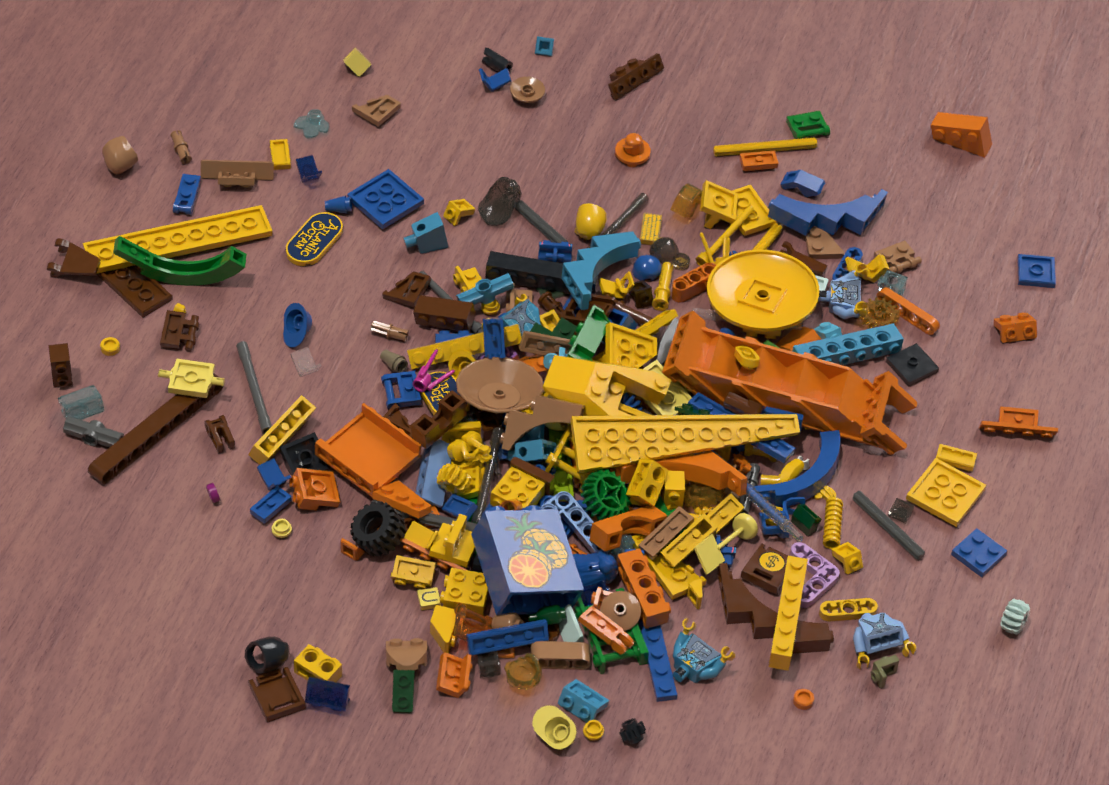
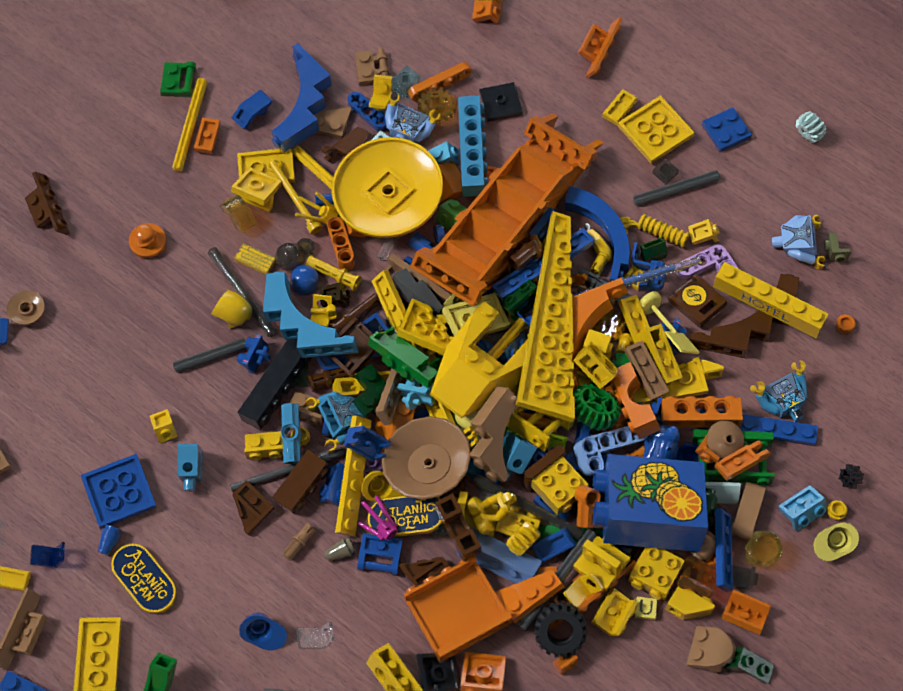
camera: 65 degrees left, 15 degrees up
(500, 201) = (172, 382): clear smoke hair -> none
(747, 357) = (480, 226): yellow plate -> none
(842, 615) = (765, 247): yellow beam -> none

